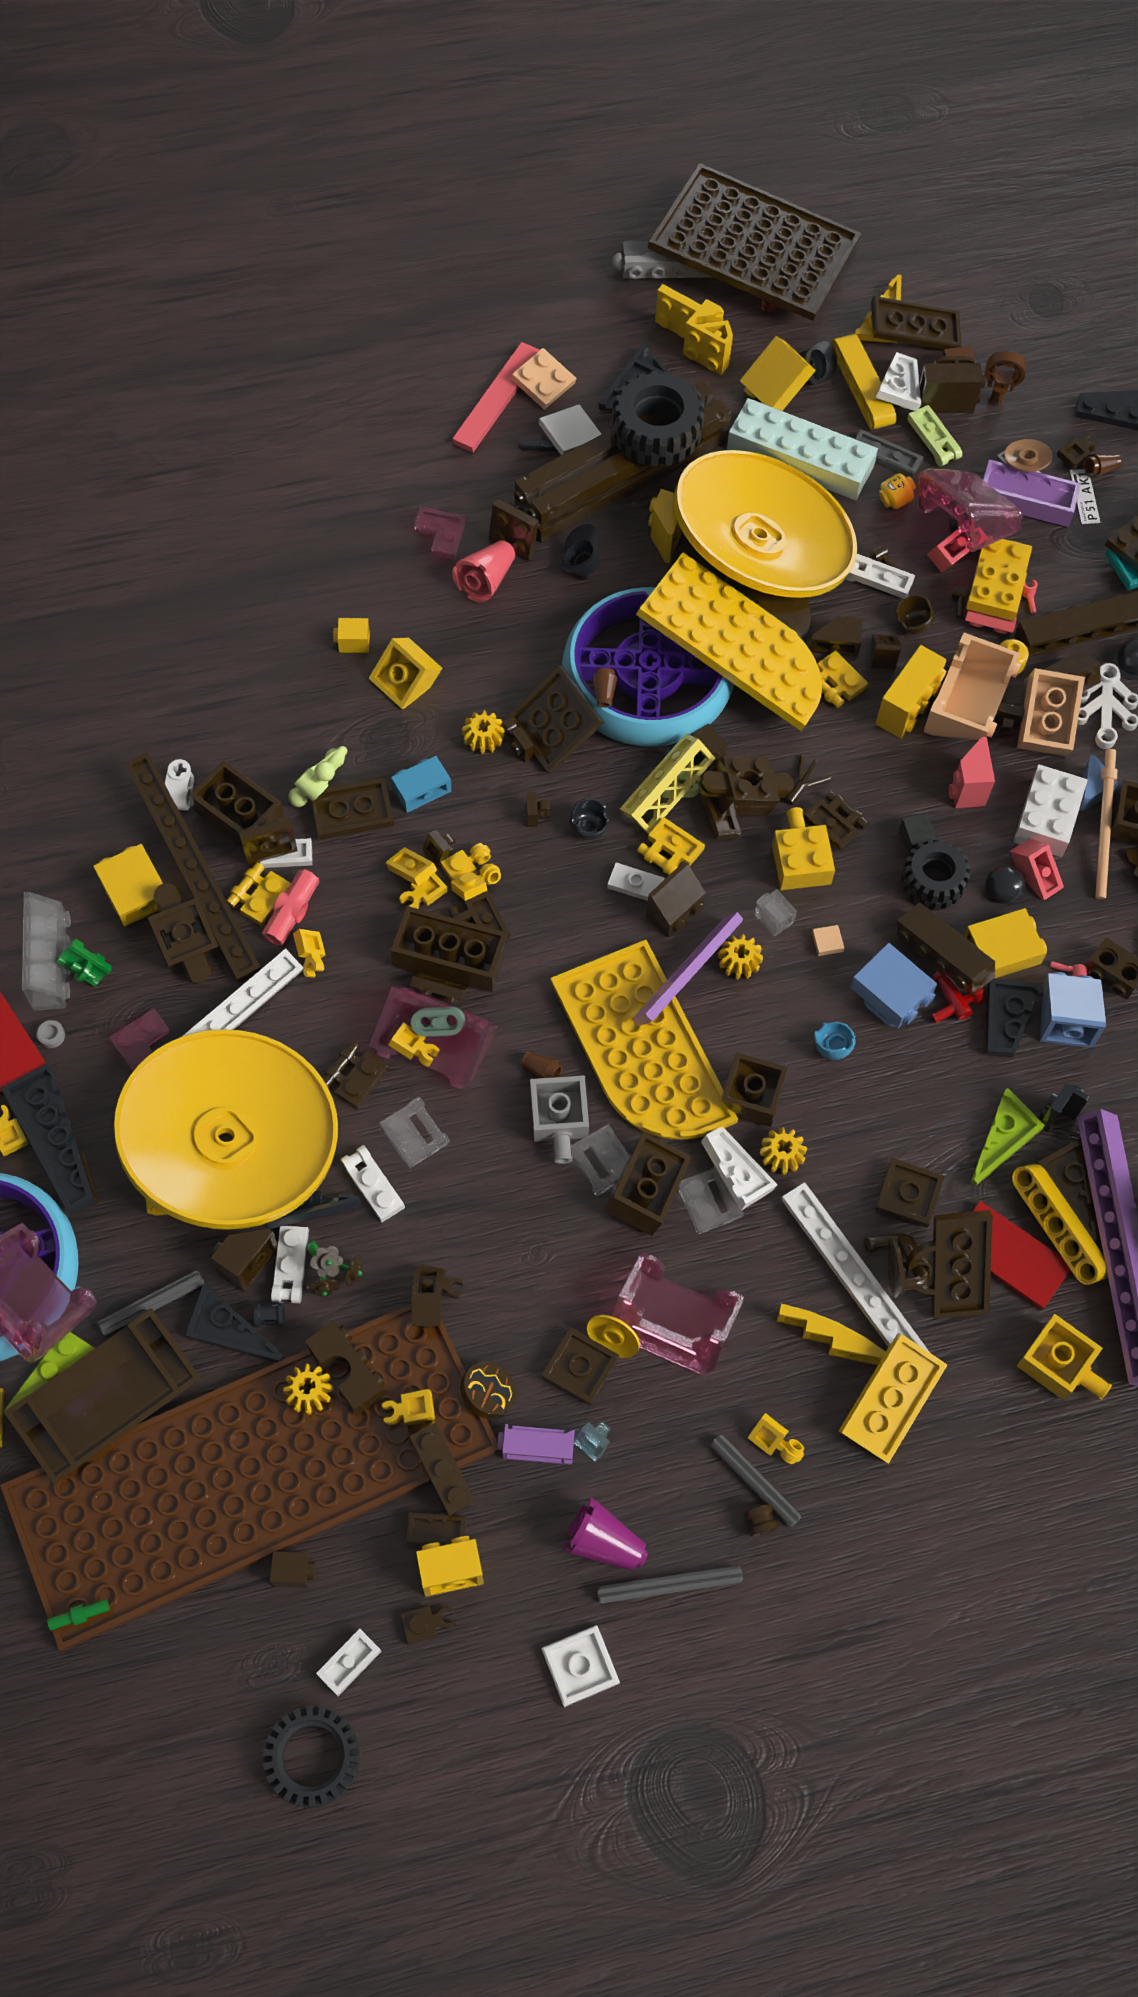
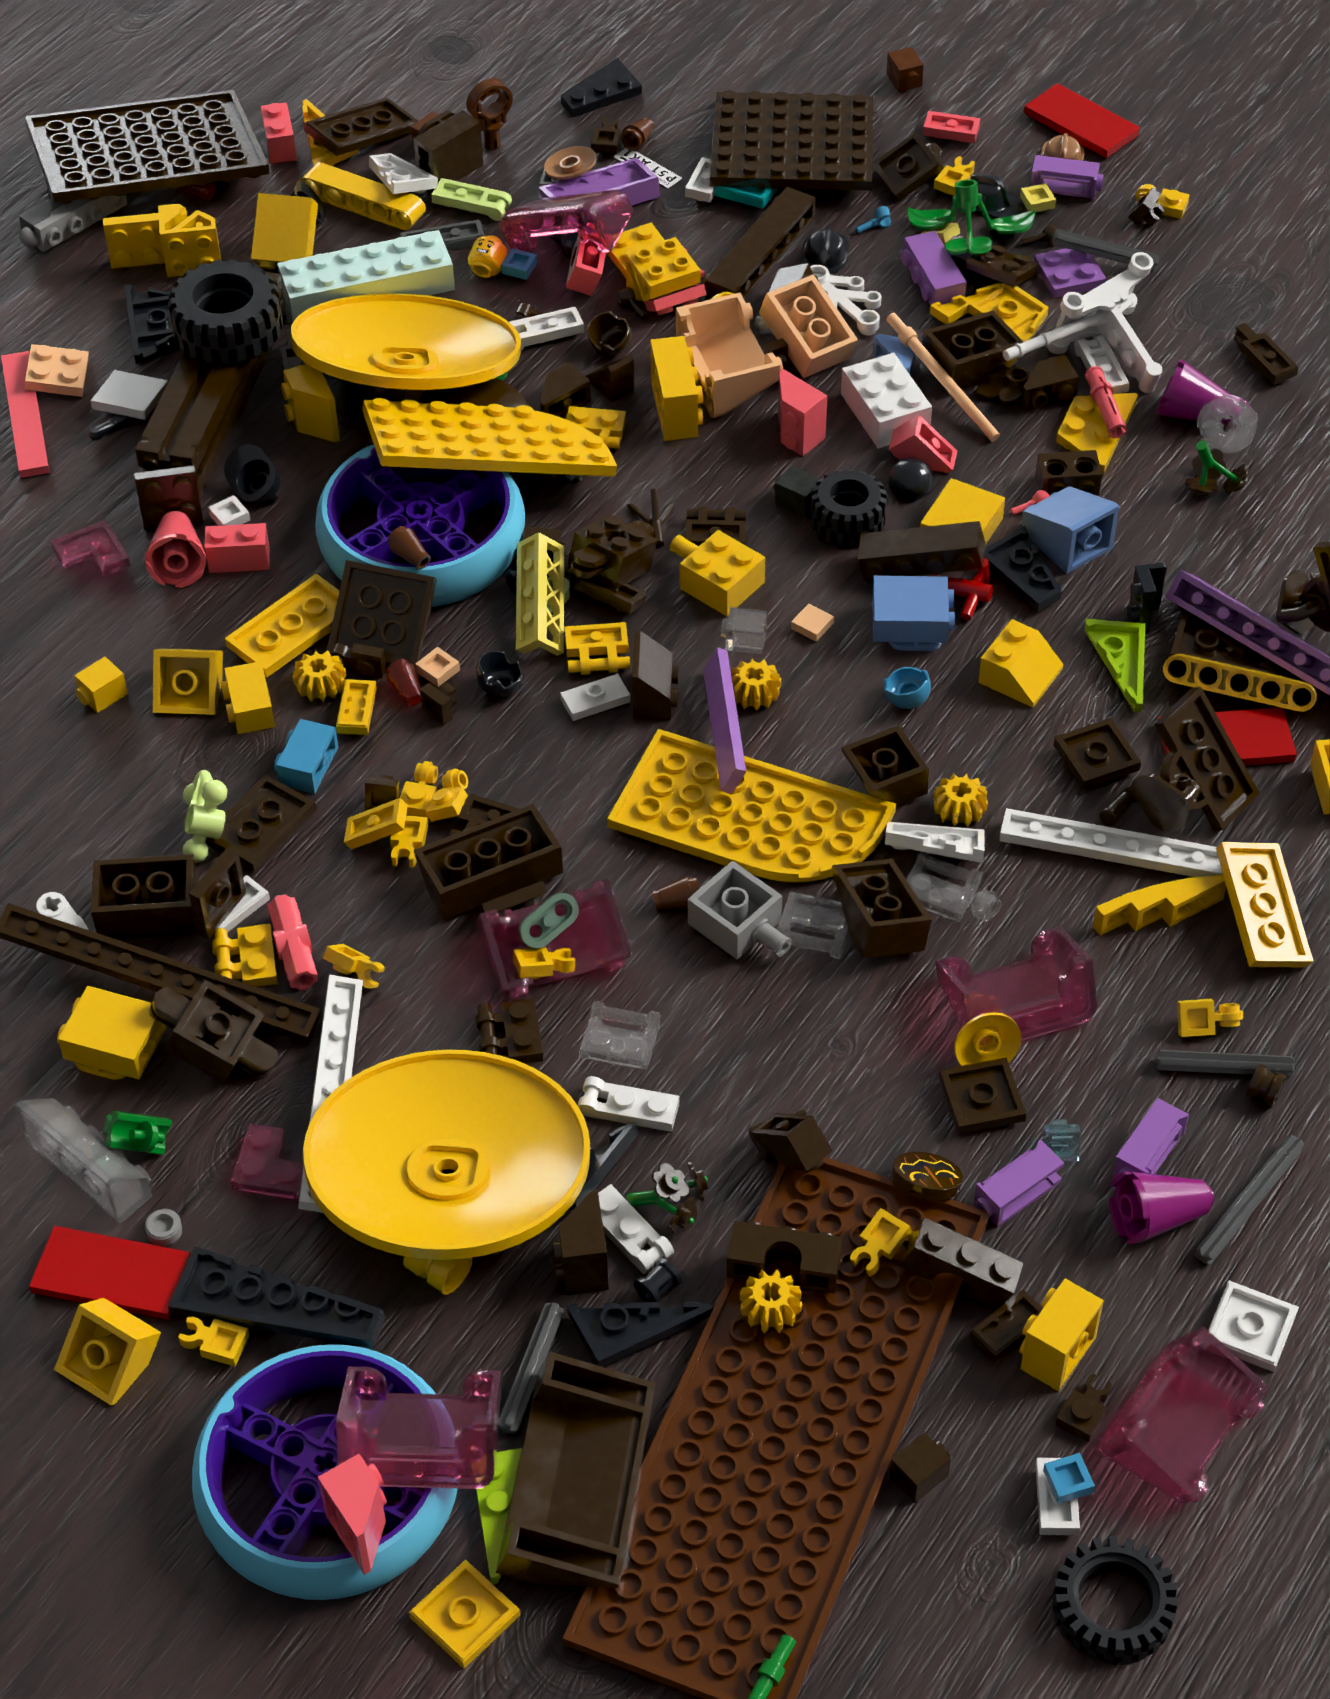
camera: 40 degrees left, 15 degrees down
(357, 1660) = (1068, 1478): none -> dark azure plate
(427, 714) = (249, 698): none -> yellow brick
(467, 1684) = (1182, 1414): none -> clear pink windscreen
(485, 771) = (356, 707): none -> yellow plate
(498, 679) = (287, 626): none -> yellow plate
(523, 598) = (237, 548): none -> coral brick
(530, 776) = (404, 680): none -> clear red cone
(545, 568) = (229, 512): none -> white plate
(560, 782) = (437, 666): none -> light nougat plate
(643, 1493) = (1152, 1139): none -> medium lavender window
(721, 1238) = (985, 905): none -> clear plate
(855, 290) = (278, 133): none -> coral brick
(914, 512) = (519, 264): none -> dark azure plate
(928, 1085) = (1020, 664): none -> yellow slope
(1097, 539) = (698, 185): none -> white plate

